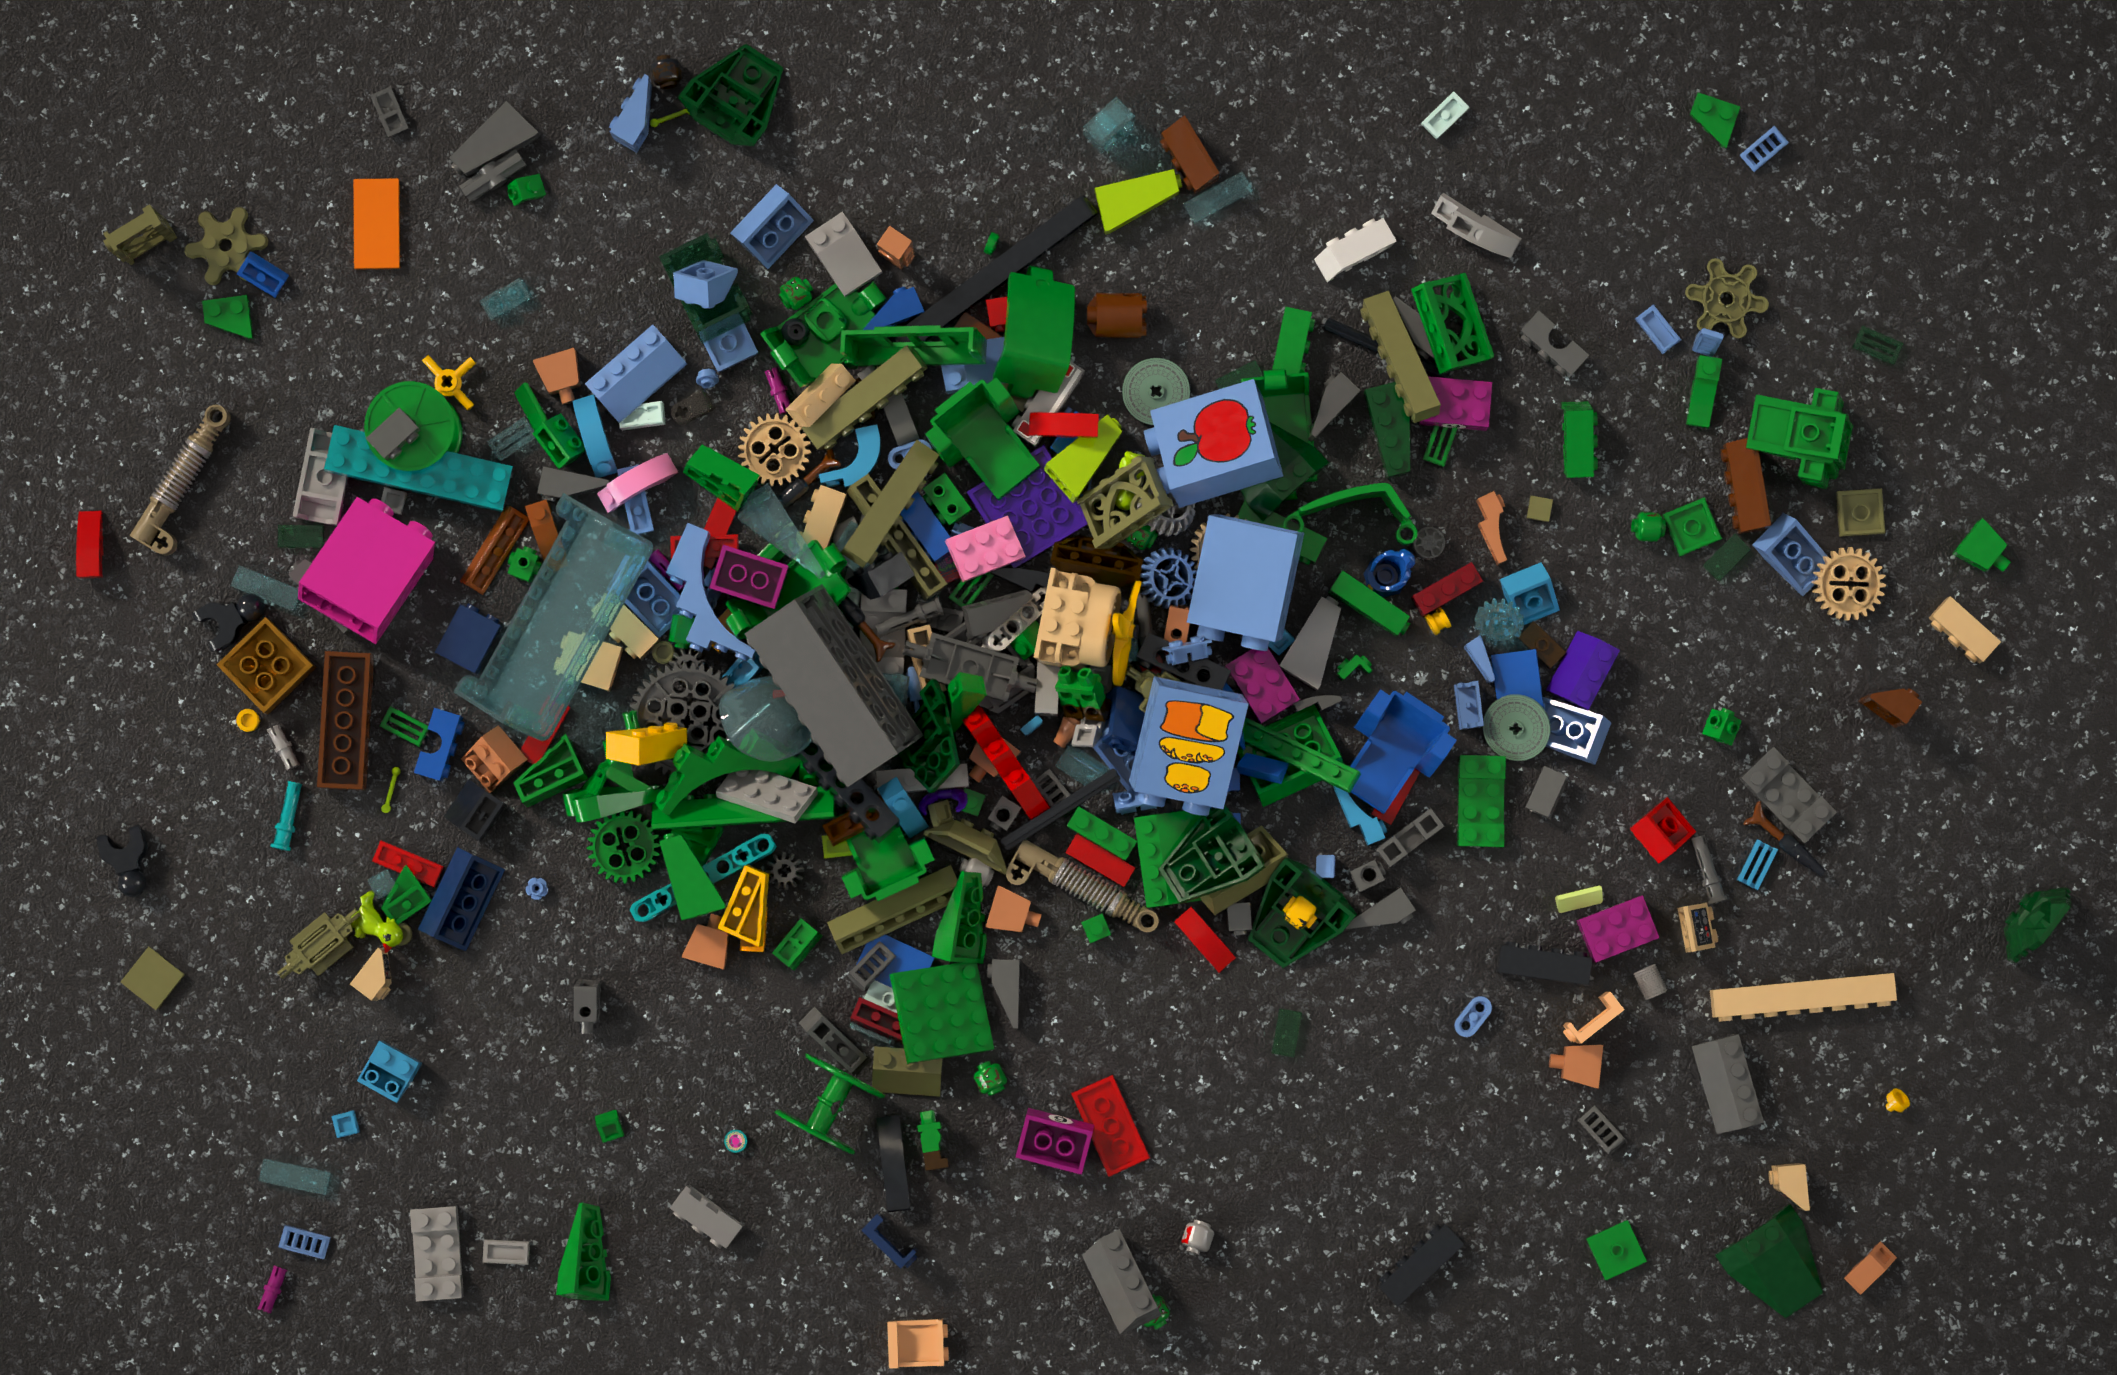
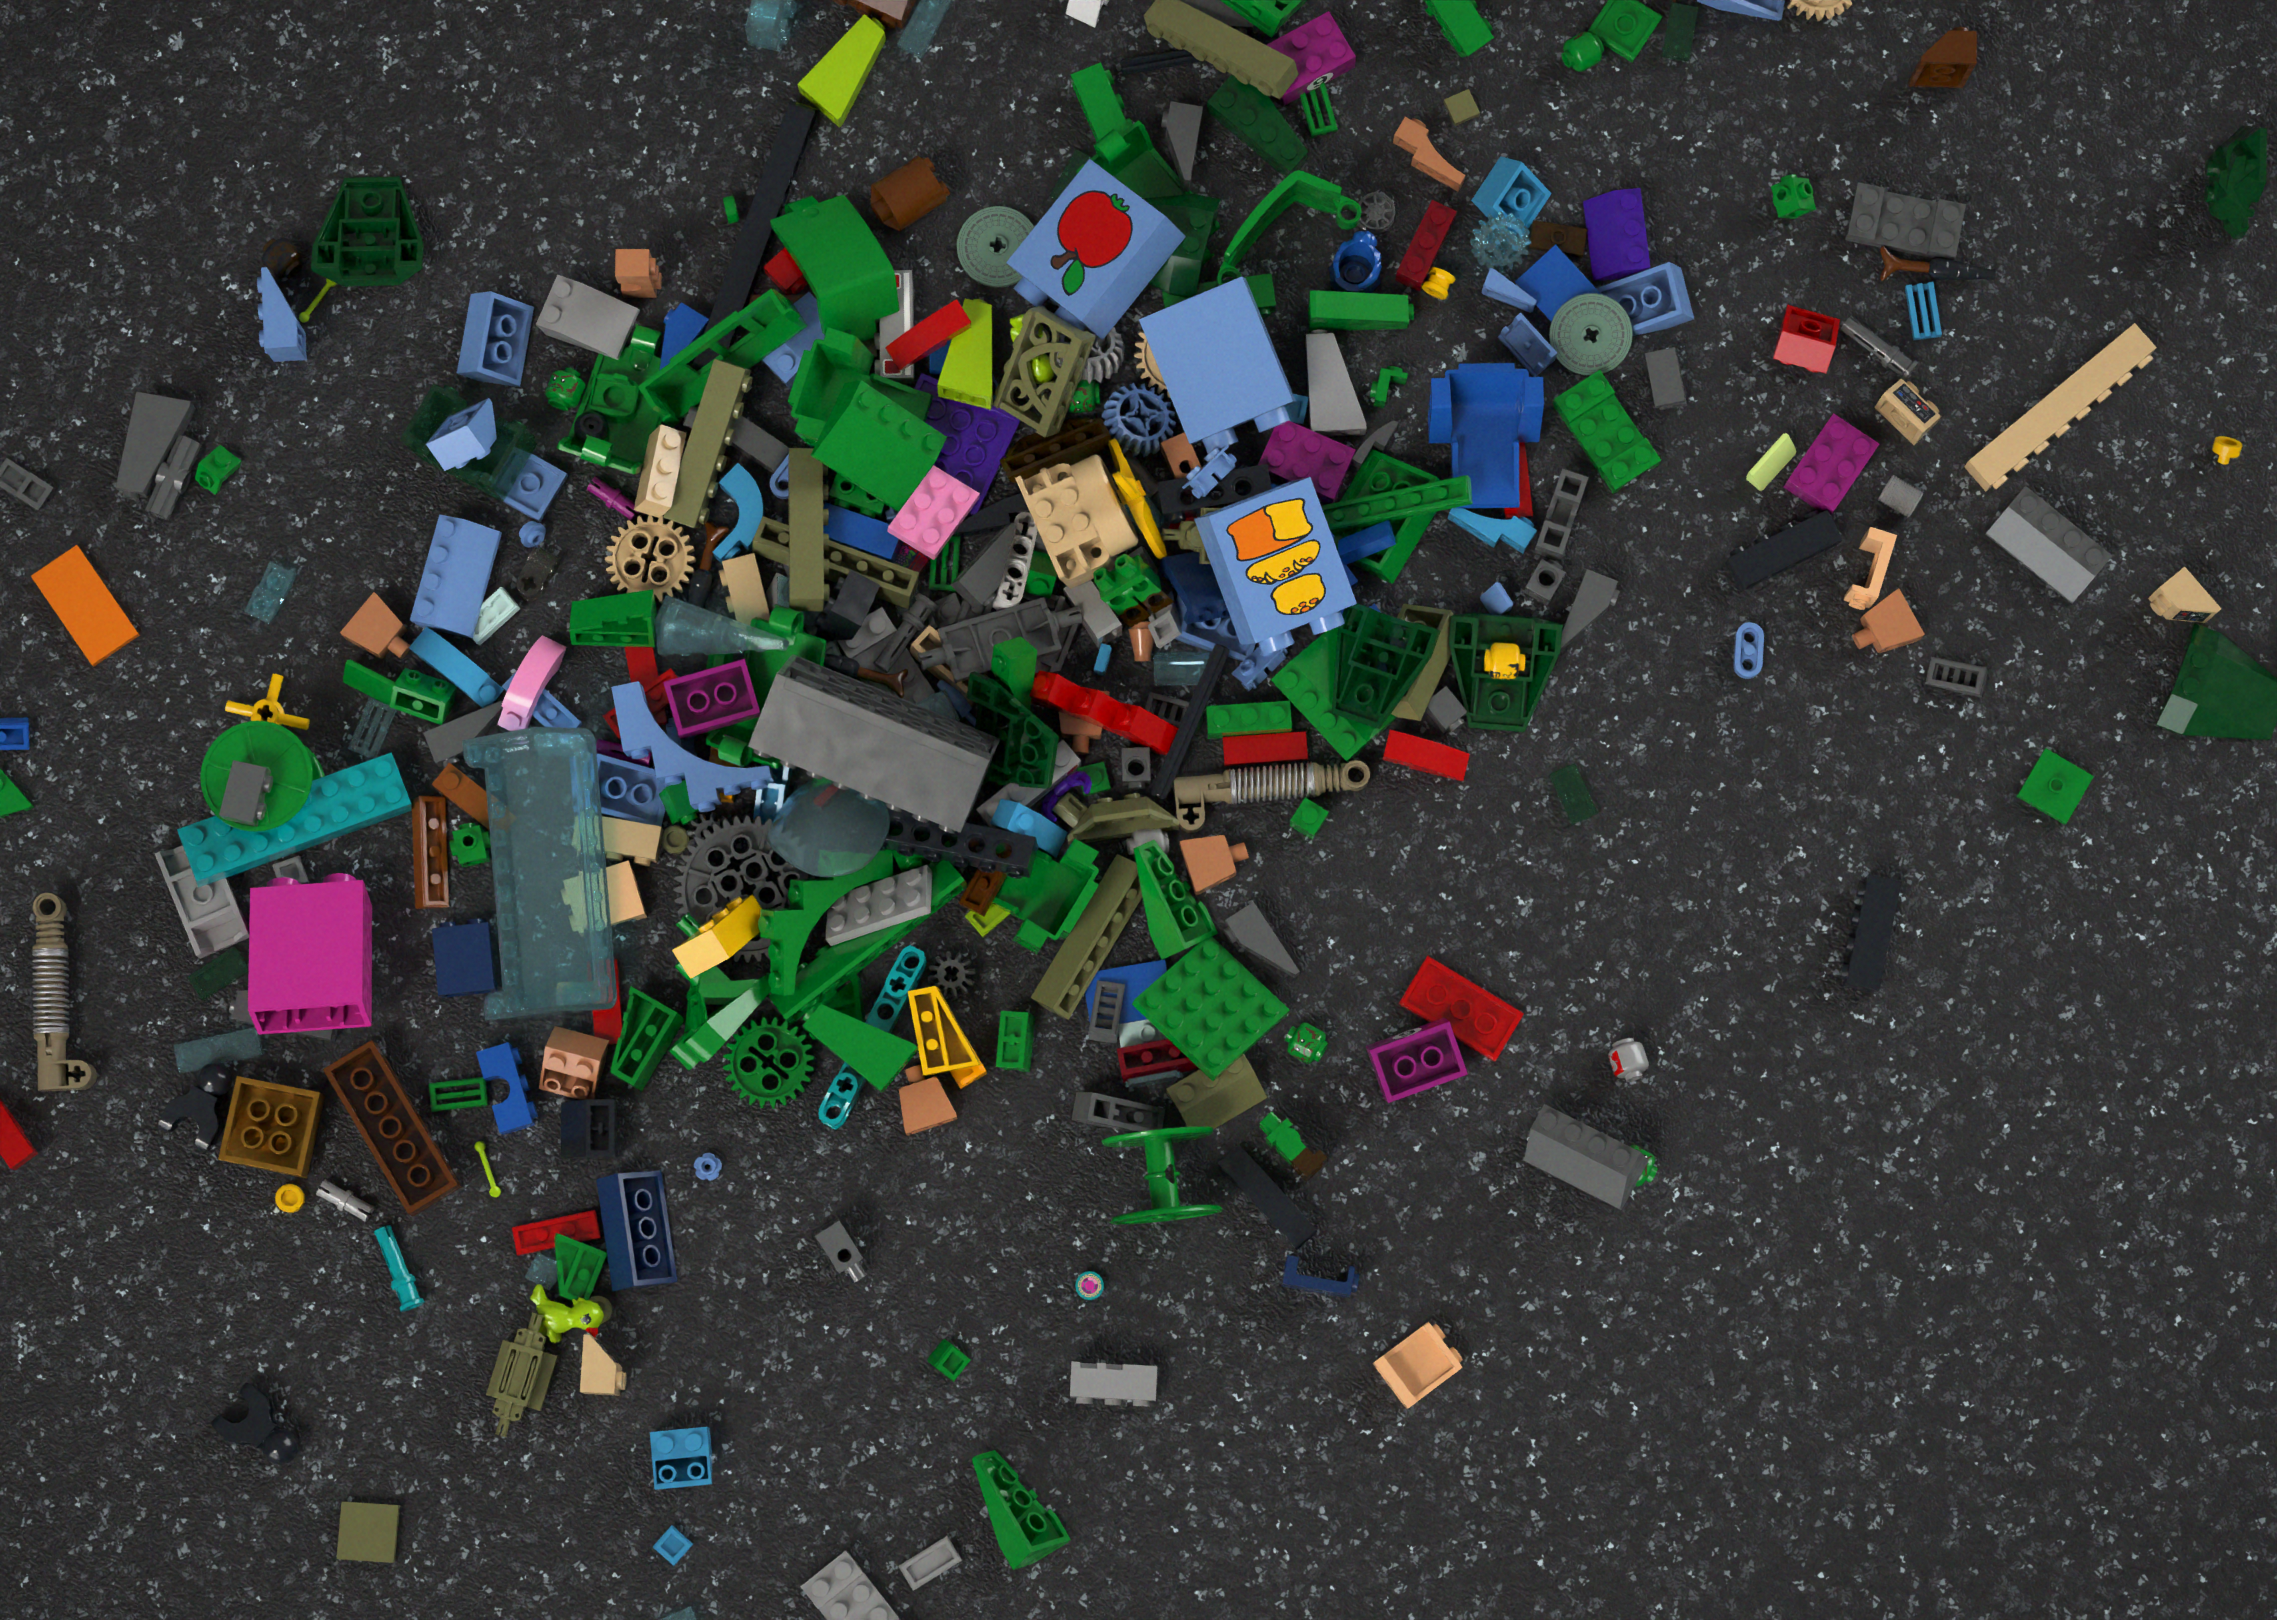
camera: 35 degrees left, 5 degrees down
(976, 479) = (877, 444): none -> green slope

